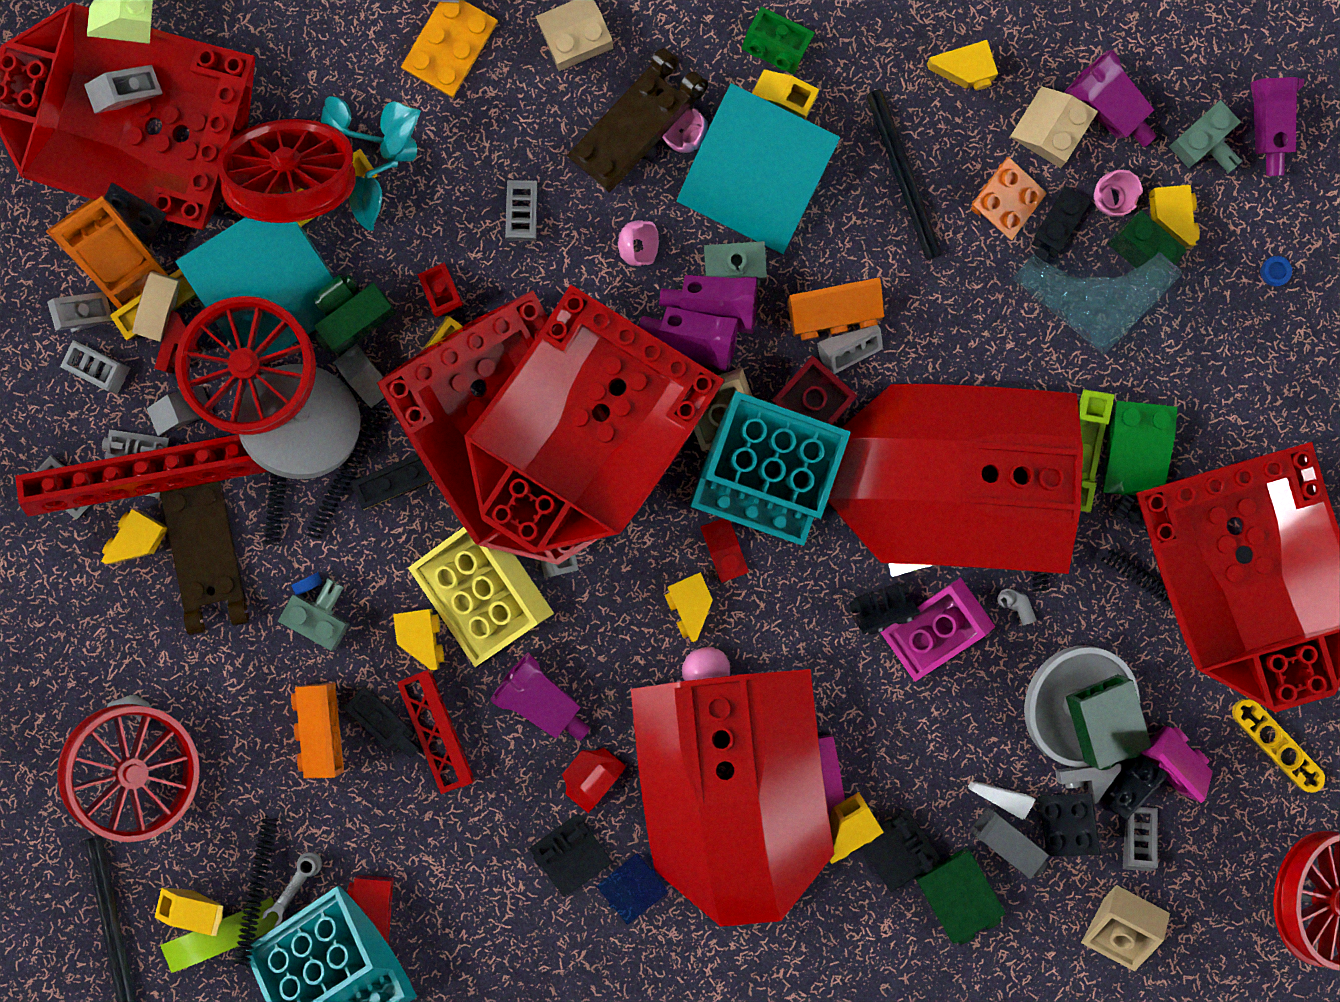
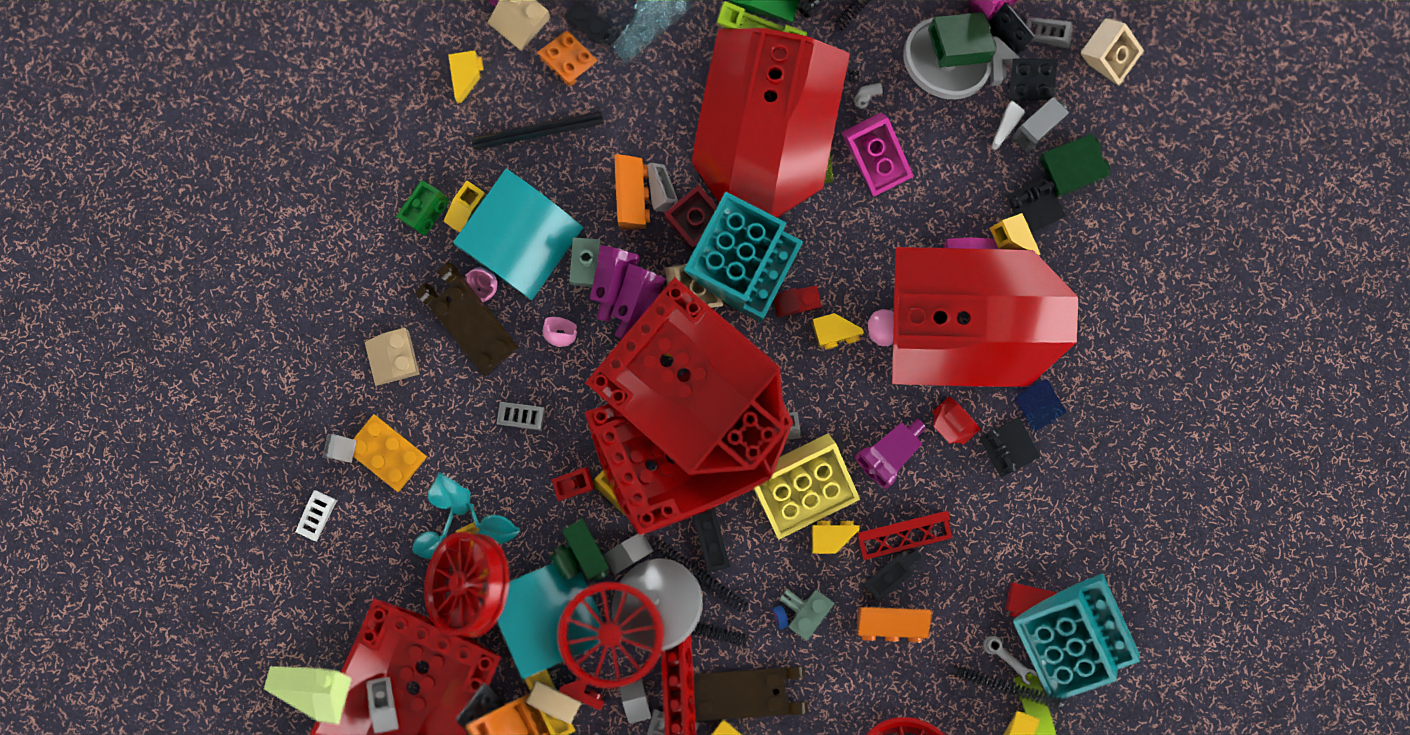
camera: 85 degrees left, 5 degrees down
(873, 620) = (863, 193): black hinge -> none

